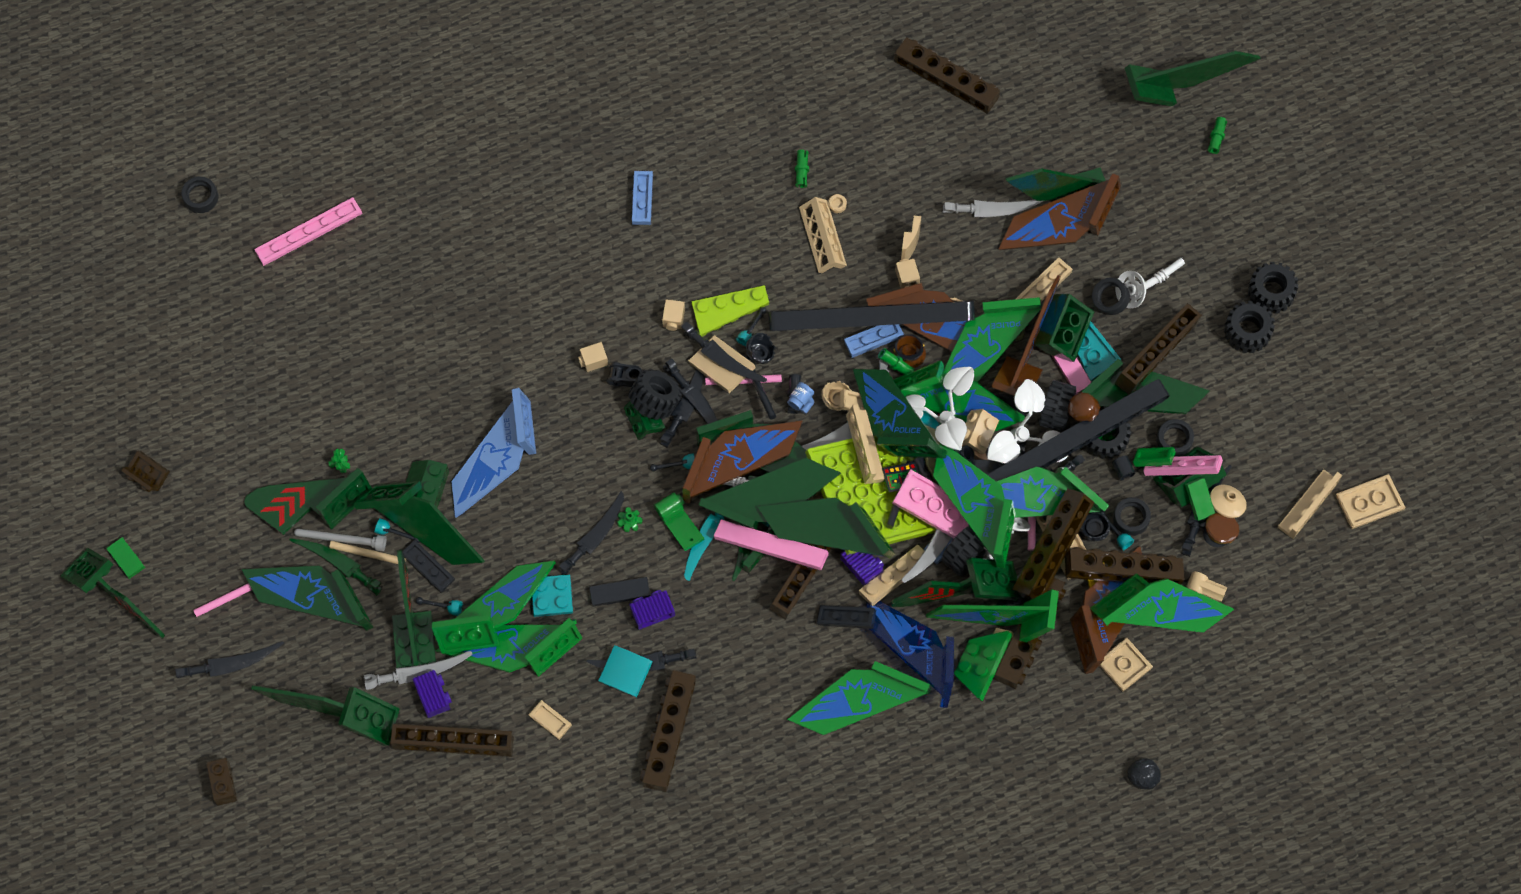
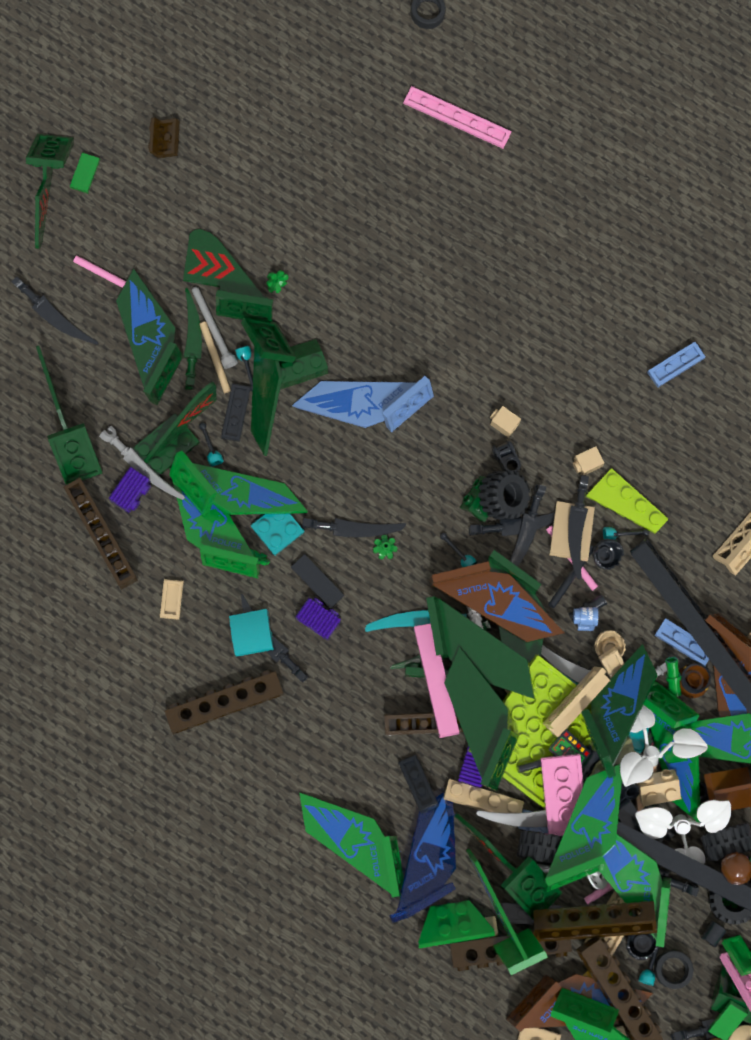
camera: 50 degrees right, 10 degrees up
(677, 521) = (409, 589): green door -> none

